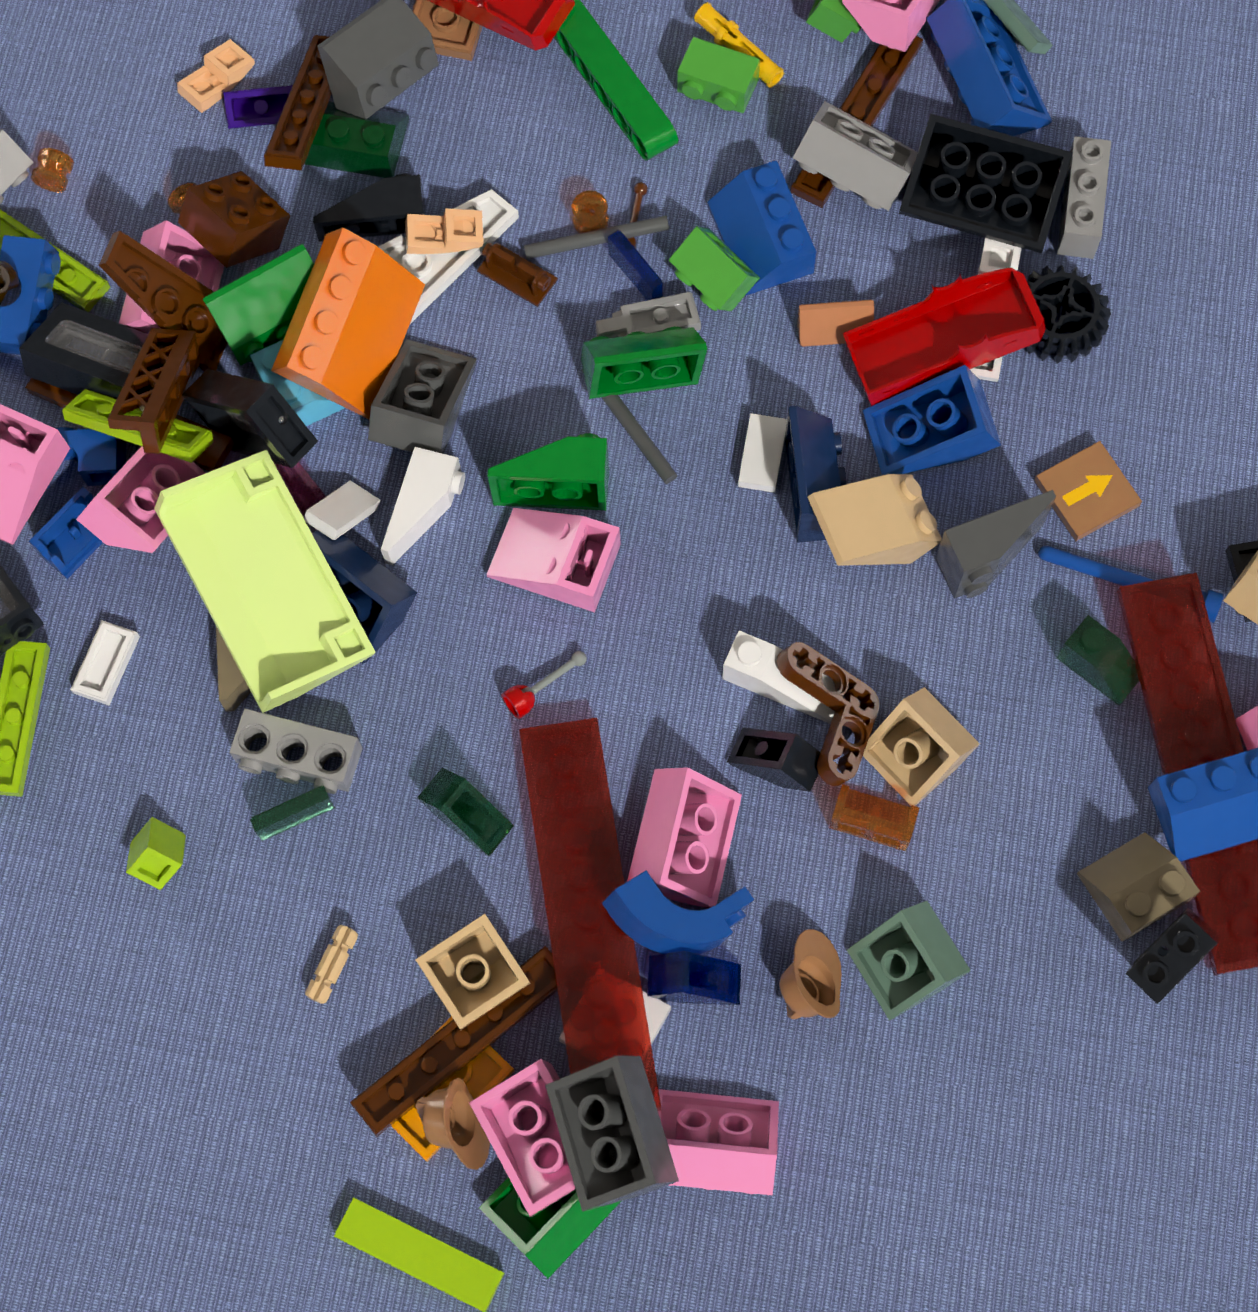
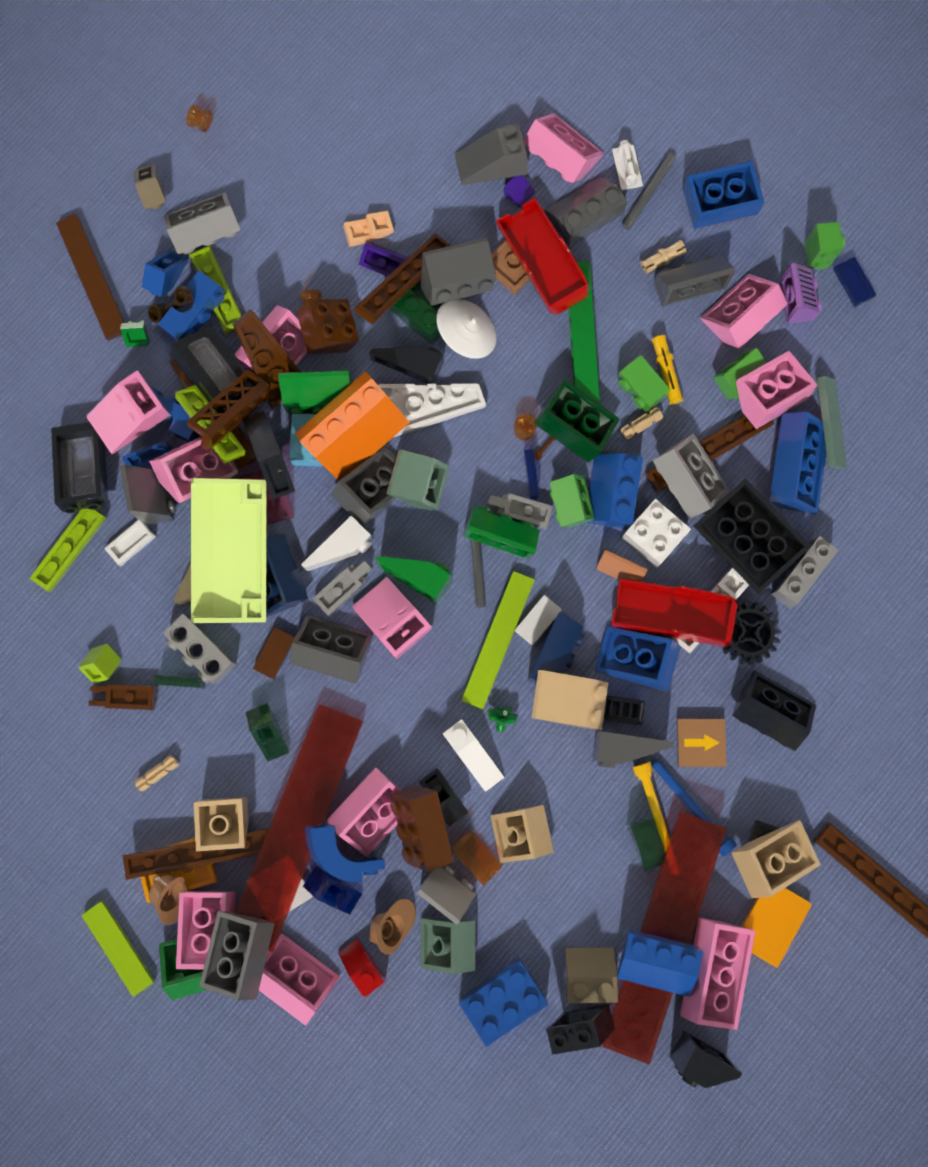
camera: 30 degrees right, 10 degrees up
(52, 170) = (249, 239): clear orange wheel -> none
(101, 572) = (146, 496): none -> dark grey slope
(219, 881) = (125, 697): none -> reddish brown hinge
(341, 510) = (294, 529): white tile -> none
(410, 699) = (274, 653): none -> reddish brown tile
(432, 127) = (466, 328): none -> white hat
(444, 234) = (437, 397): light nougat slope -> none
(457, 556) = (342, 588): none -> light grey hinge
(483, 351) = (418, 480): none -> sand green slope
(491, 647) = (330, 648): none -> dark grey slope
(516, 273) = (465, 440): reddish brown hinge -> none
(521, 698) = (331, 686): hinge -> none
(595, 237) = (520, 443): dark grey bar -> none
(657, 164) = (577, 421): none -> dark green slope
(723, 510) = (498, 640): none -> lime tile
(746, 129) = (641, 423): none -> tan axle
(774, 806) = (421, 828): none -> reddish brown brick
(793, 607) = (502, 717): none -> green plant
(804, 1065) = (361, 968): none -> red slope
(846, 709) = (494, 794): reddish brown beam -> none
(854, 252) = (656, 533): none -> white brick
(863, 882) = (447, 893): none -> light grey slope
(959, 488) = (620, 700): none -> black slope
(1036, 572) = (644, 773): none -> yellow piece
(1038, 992) = (503, 1002): none -> blue brick
(1160, 395) = (775, 711): none -> black slope

